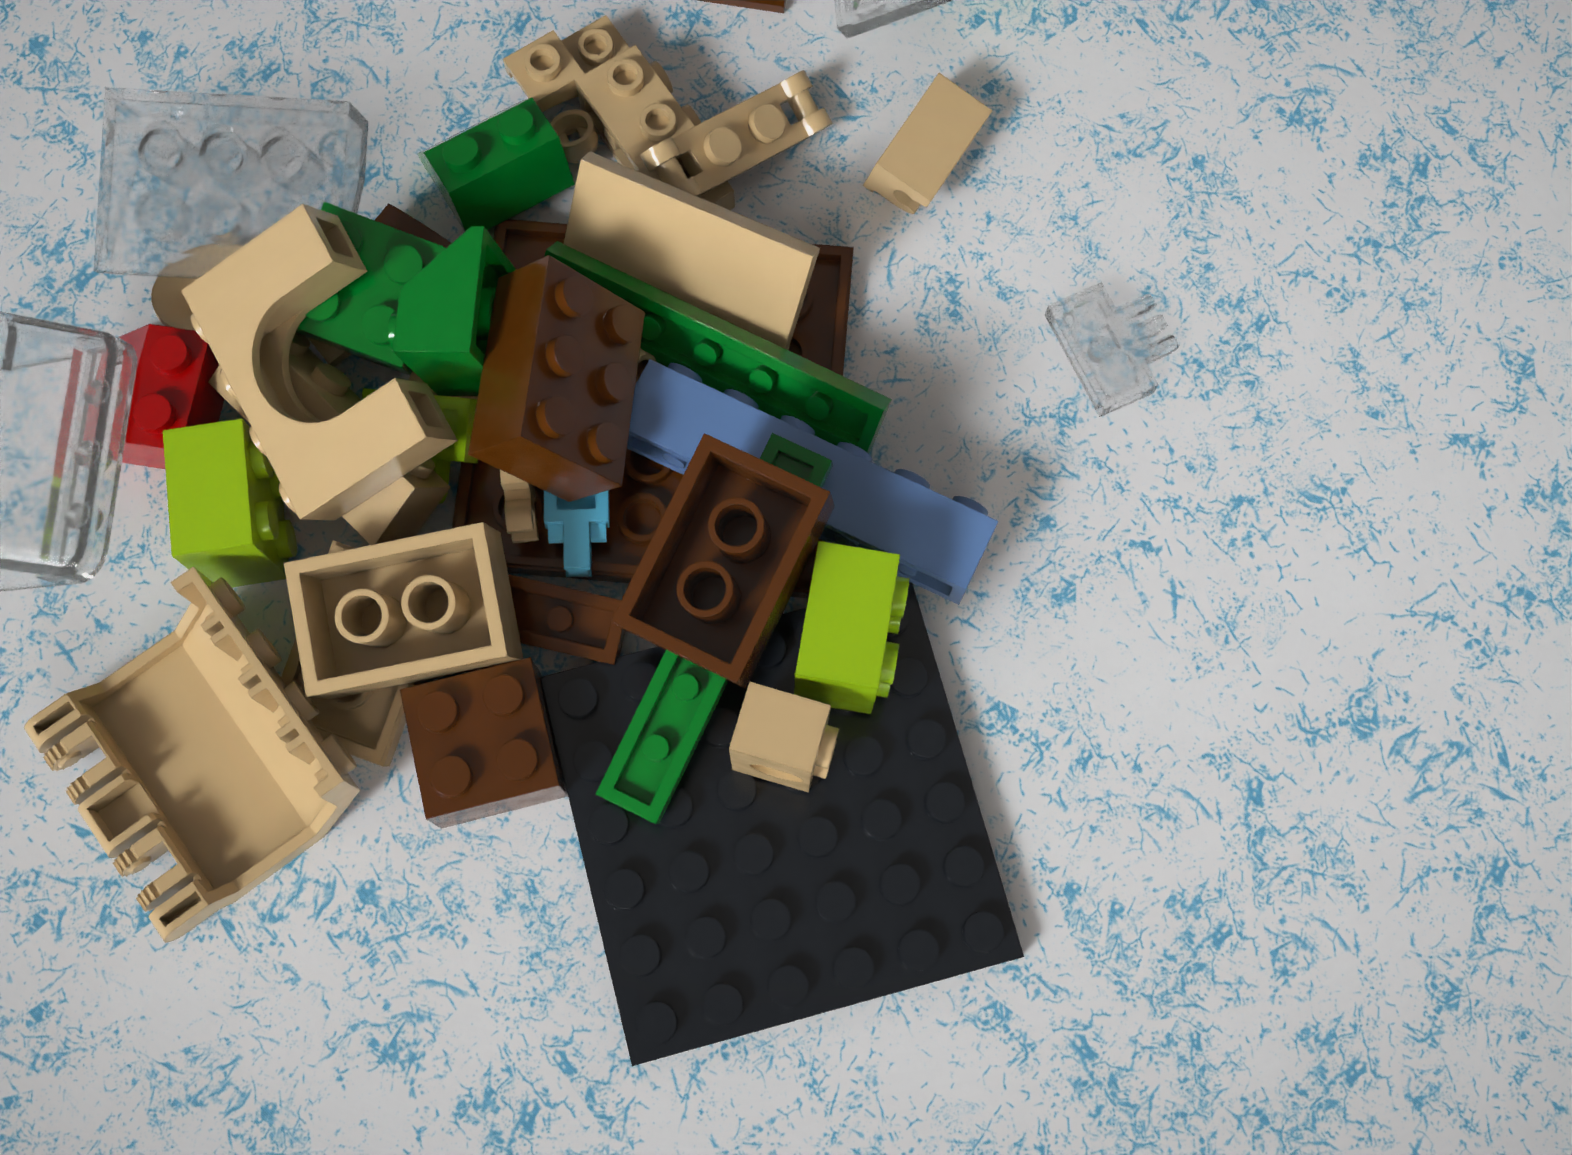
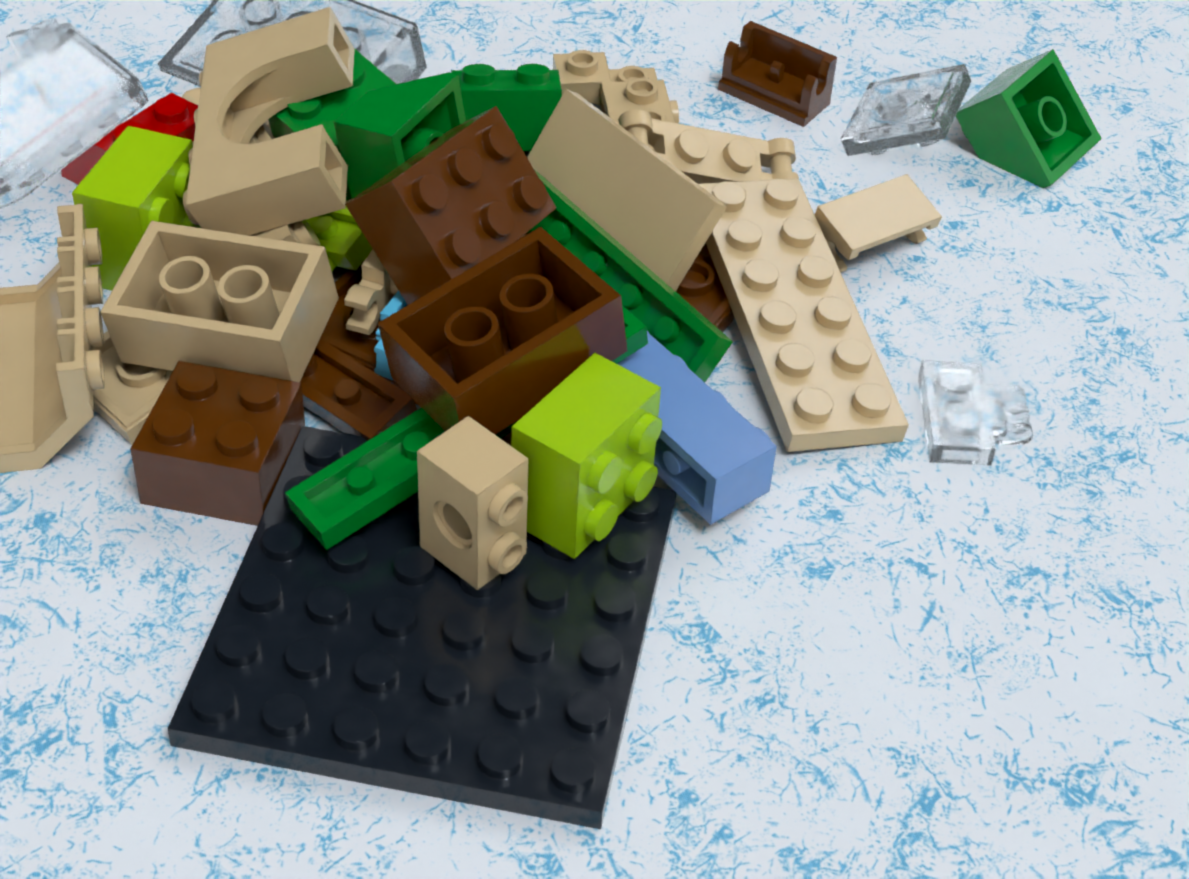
camera: 25 degrees right, 30 degrees down
(909, 300) = (800, 320): none -> tan plate

